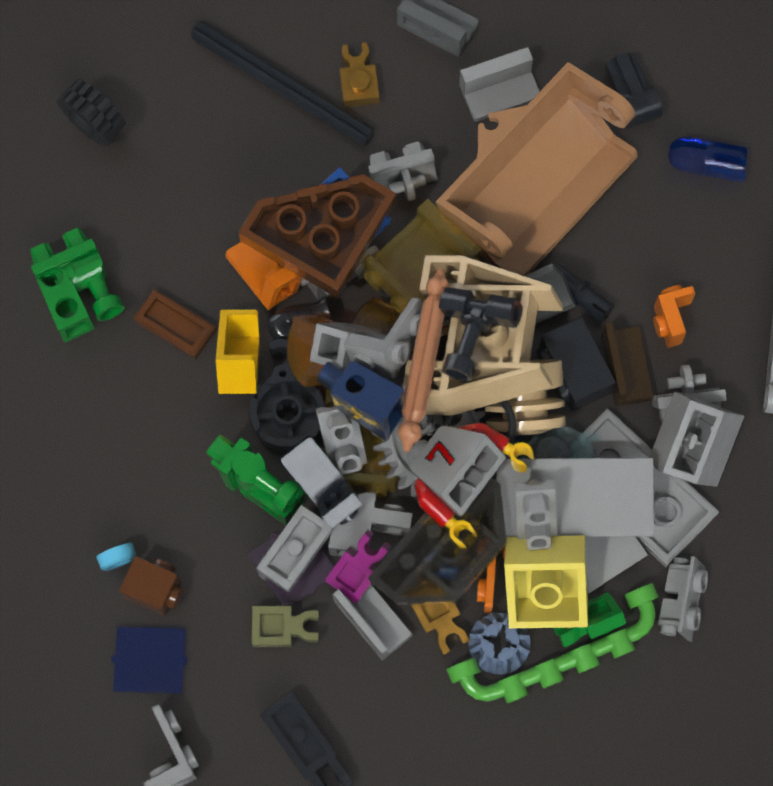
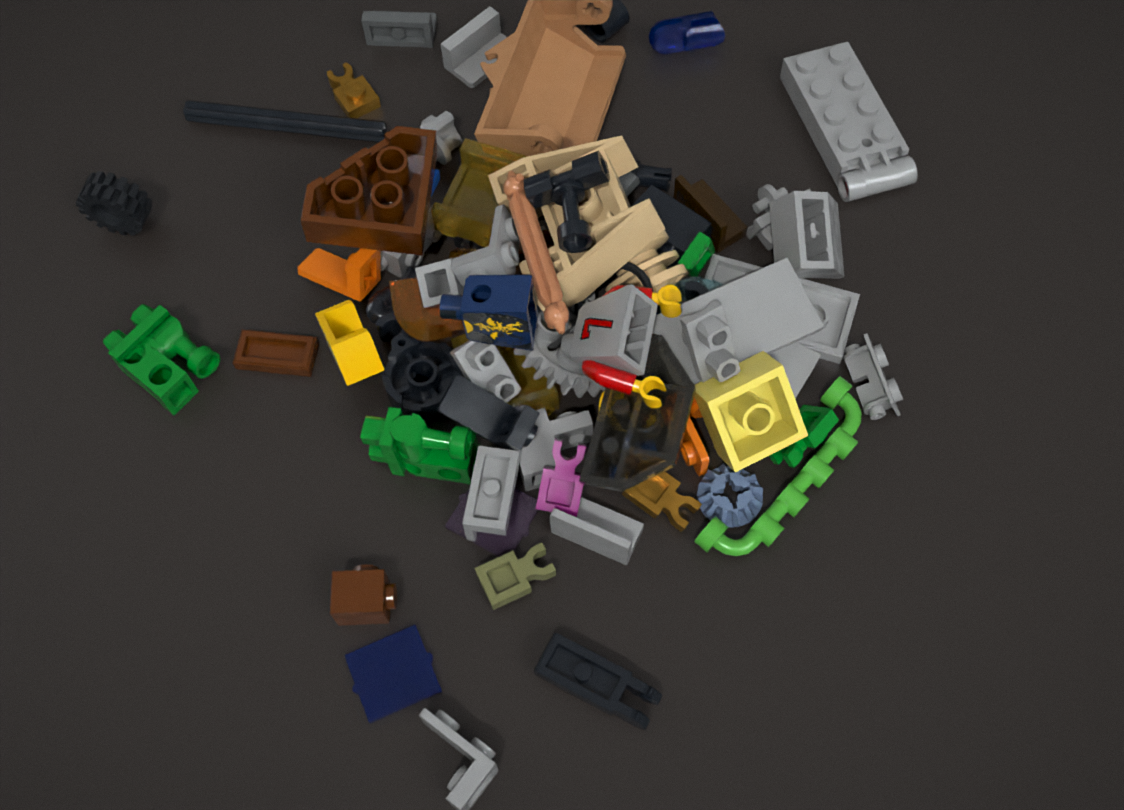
camera: 25 degrees left, 10 degrees down
(116, 557) = (312, 585): medium azure tile -> none
(588, 406) = (697, 254): none -> green tile
(668, 318) = (724, 158): orange bracket -> none

